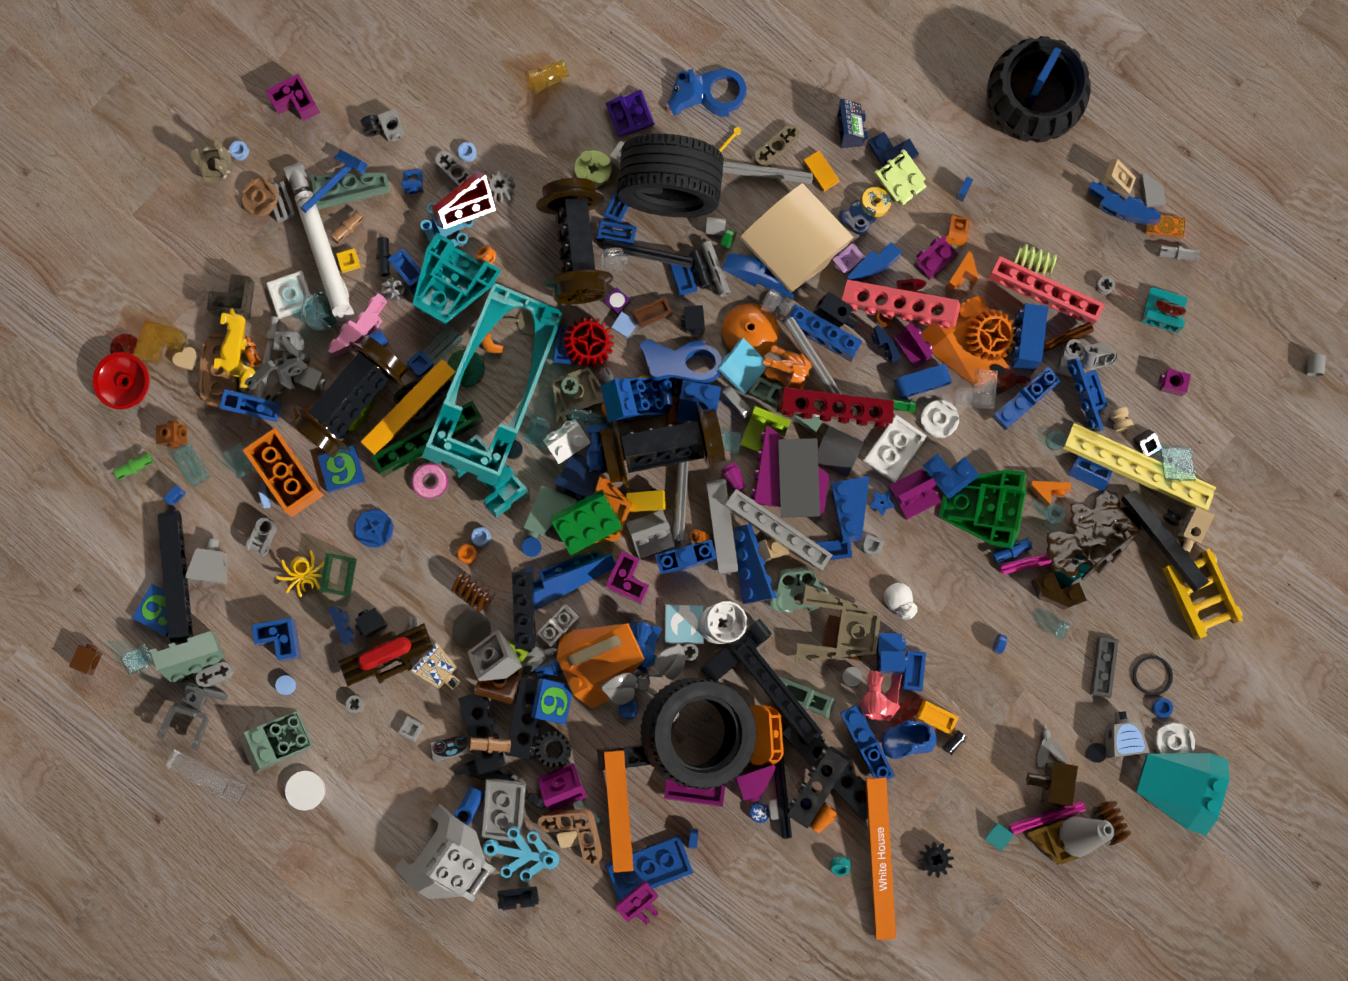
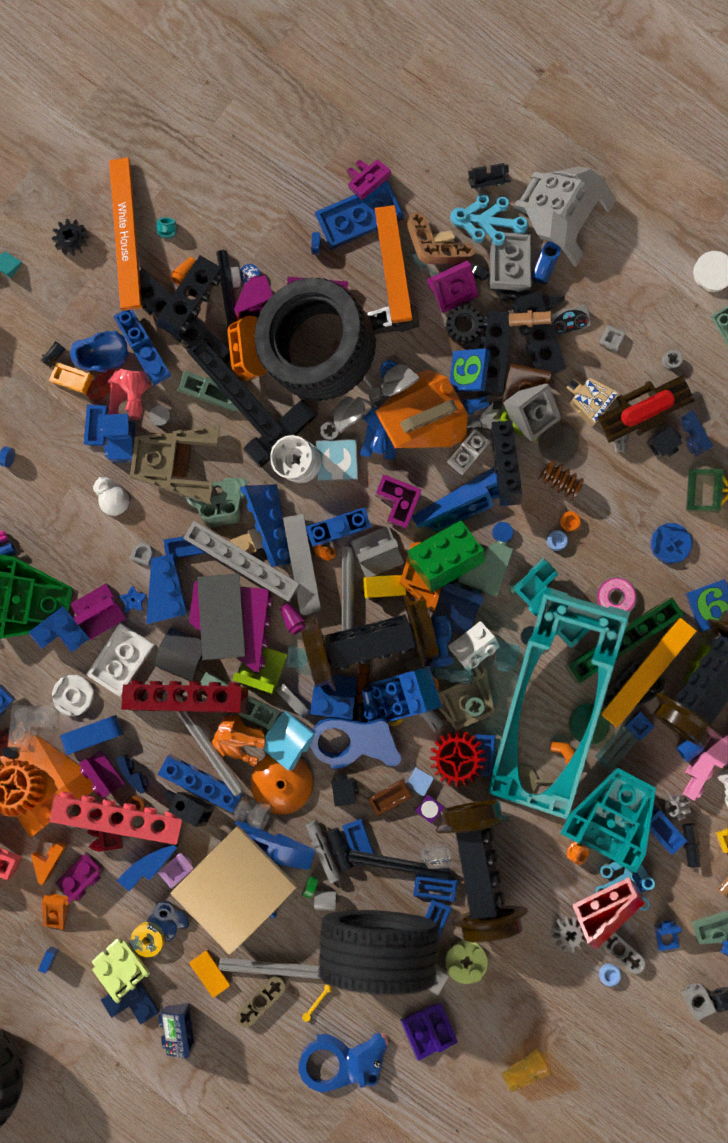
camera: 175 degrees right, 5 degrees up
(904, 405) = (111, 707): green pin -> none

